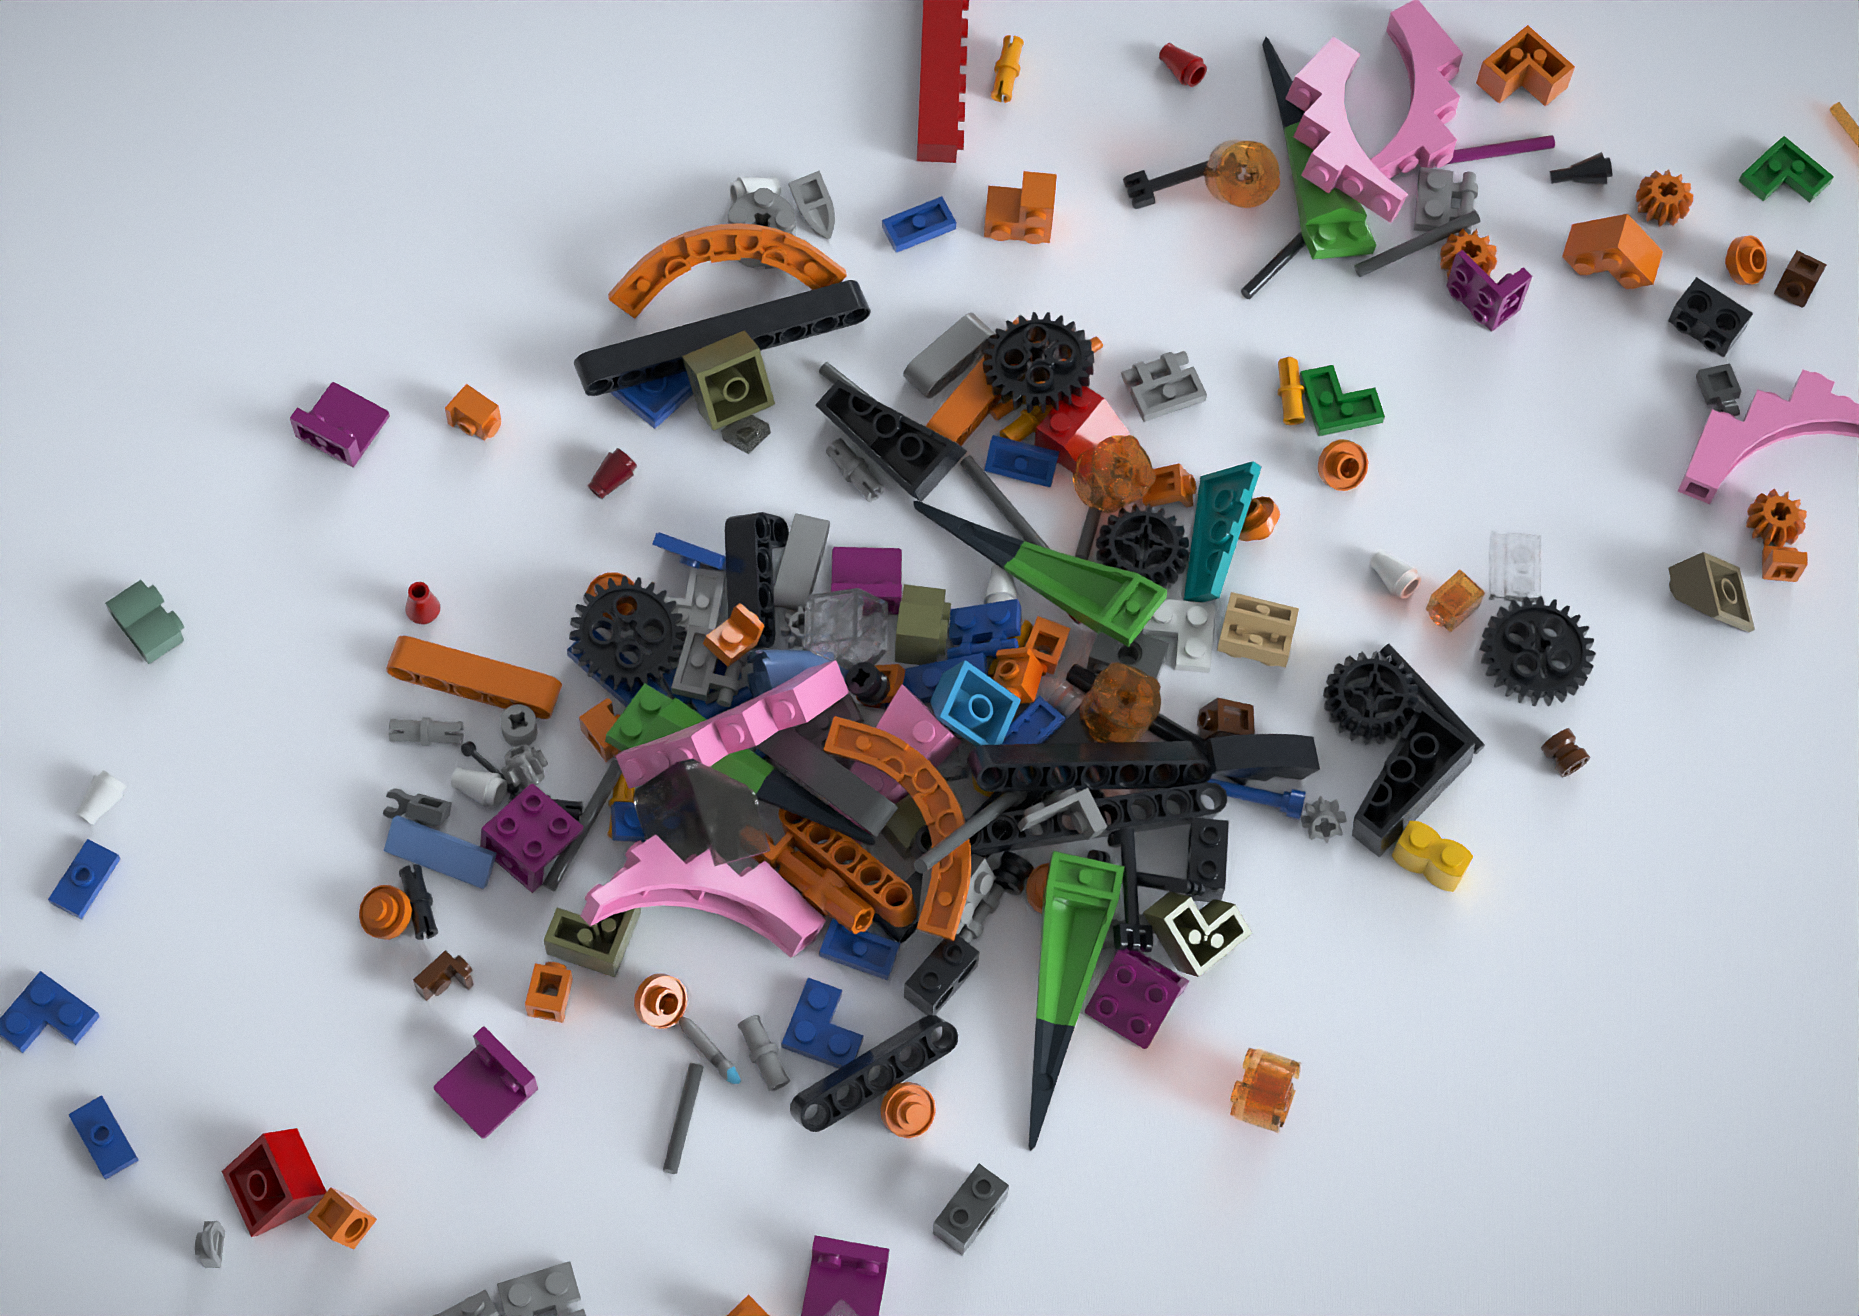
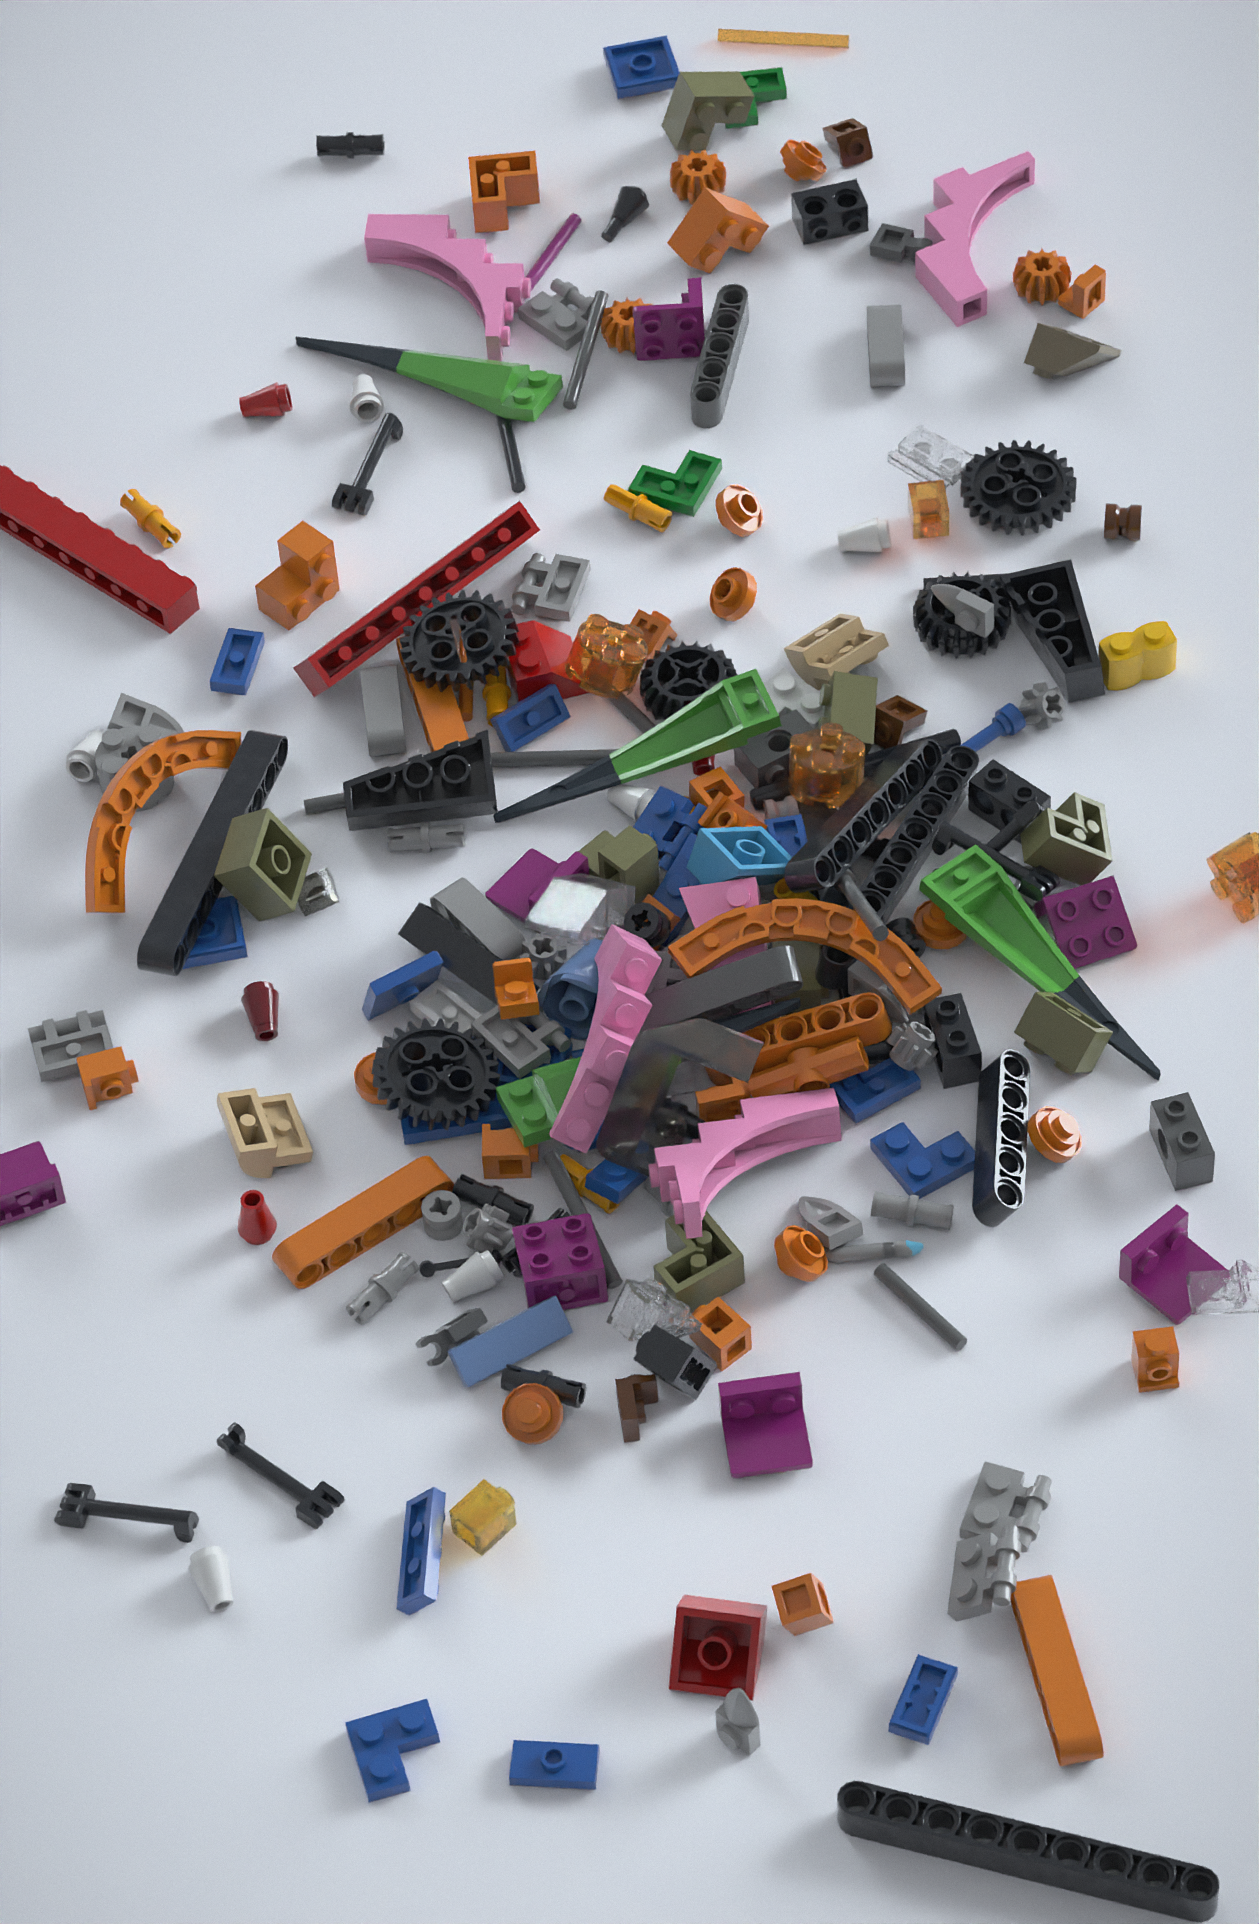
camera: 45 degrees left, 15 degrees down
(84, 879) = (282, 1640): blue plate -> none
(106, 671) = (82, 1503): none -> black hinge
(146, 621) = (69, 1444): sand green brick -> none
(215, 814) = (310, 1499): none -> black hinge
(216, 920) = (421, 1551): none -> blue plate
(274, 941) = (483, 1516): none -> clear yellow brick
(484, 376) = (58, 1055): none -> light grey plate
(487, 980) = (674, 1361): none -> black brick
(500, 552) = (264, 1131): none -> tan brick
(520, 934) = (647, 1304): none -> clear slope
(557, 751) = (479, 1194): none -> black pin
(709, 998) = (829, 1221): none -> light grey plate
(904, 950) = (912, 1045): none -> light grey gear
(1007, 1051) = (1062, 1033): none -> olive brick
(1074, 302) = (388, 618): none -> red brick
(1085, 813) = (904, 833): light grey bracket -> none
(1195, 684) = (851, 703): none -> olive brick
(1217, 527) = (711, 614): teal wing -> none
(1242, 125) = (365, 401): none -> white cone
(1259, 180) = (415, 413): clear orange brick -> none
(1263, 756) = (954, 706): black slope -> none
(1325, 129) = (429, 334): bright pink arch -> none
(1357, 705) = (970, 610): none -> light grey plate
(1482, 353) = (719, 356): none -> dark grey beam
(1604, 453) = (885, 345): none -> light grey beam
(1733, 148) = (702, 101): none -> olive brick
(1748, 77) = (641, 66): none -> blue plate

